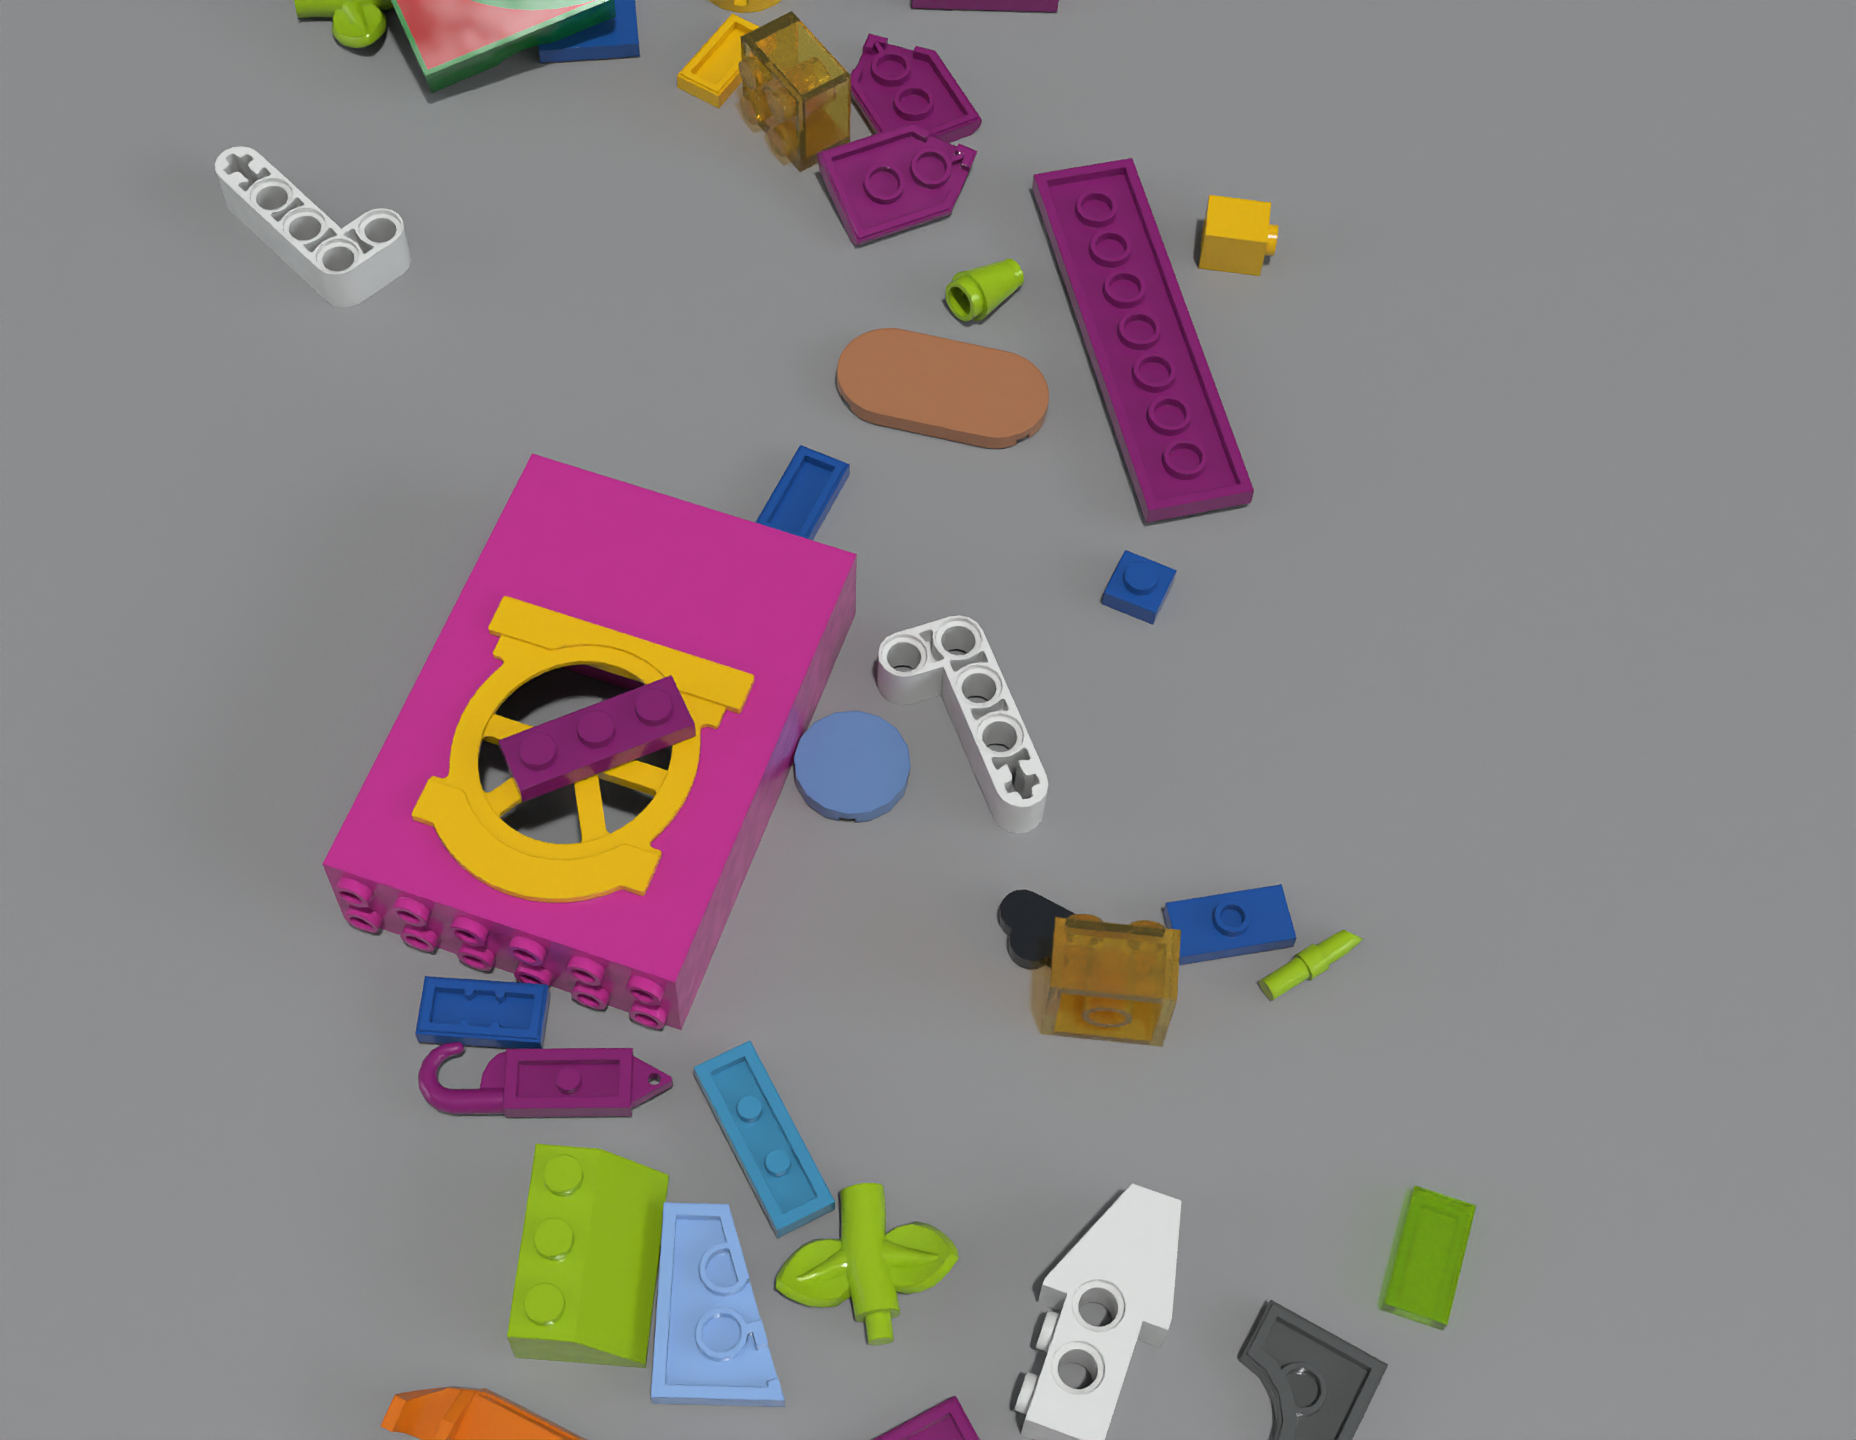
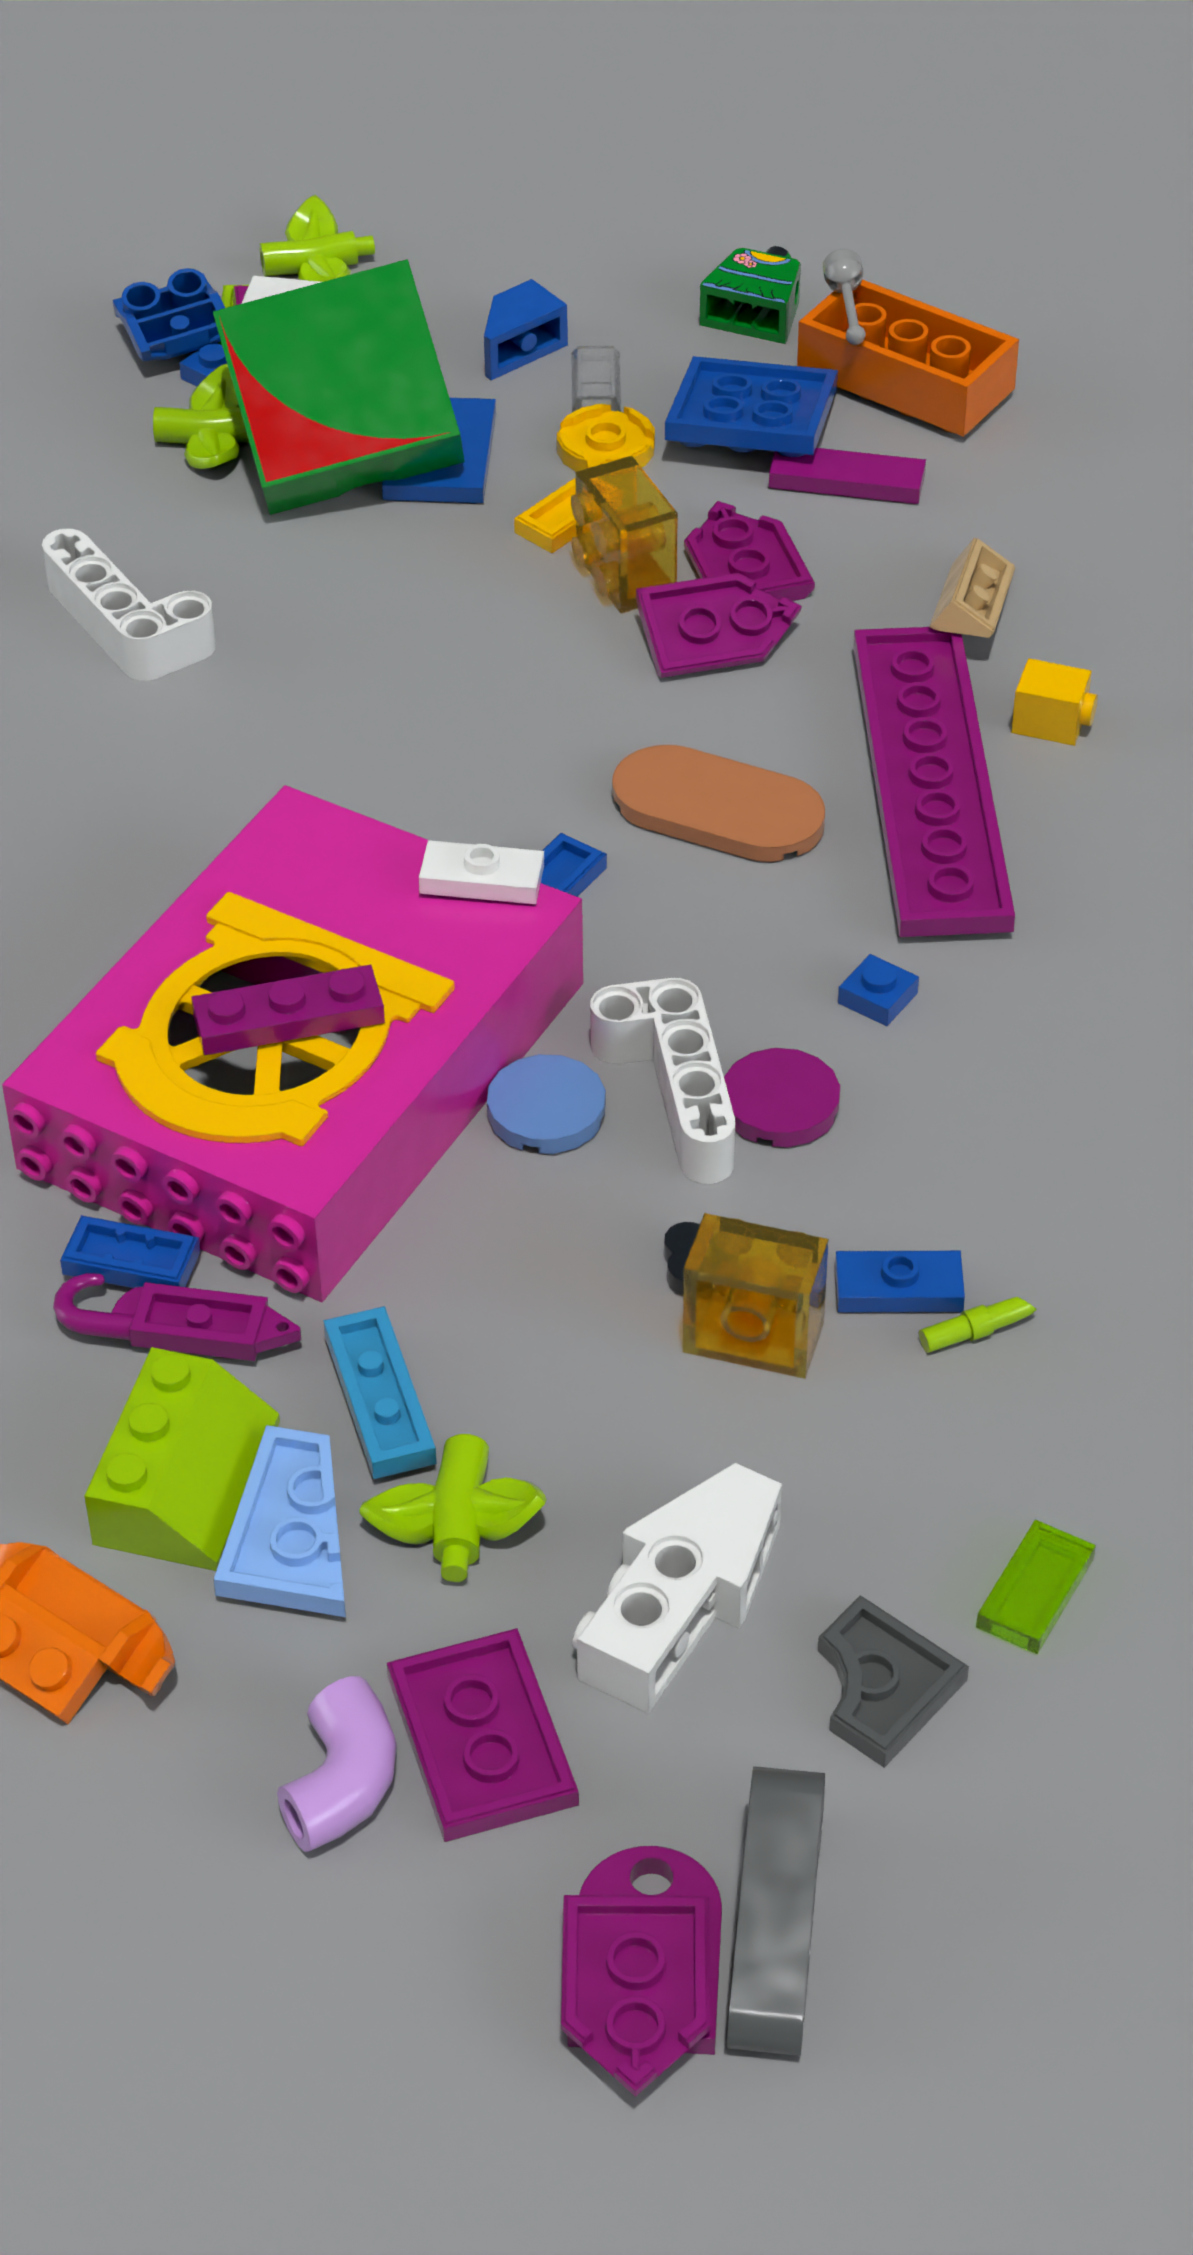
camera: 15 degrees right, 15 degrees down
(754, 540) = (481, 872): none -> white plate
(982, 289) = (777, 722): lime cone -> none
(1076, 725) = (782, 1096): none -> magenta tile
(1134, 117) = (973, 592): none -> tan slope

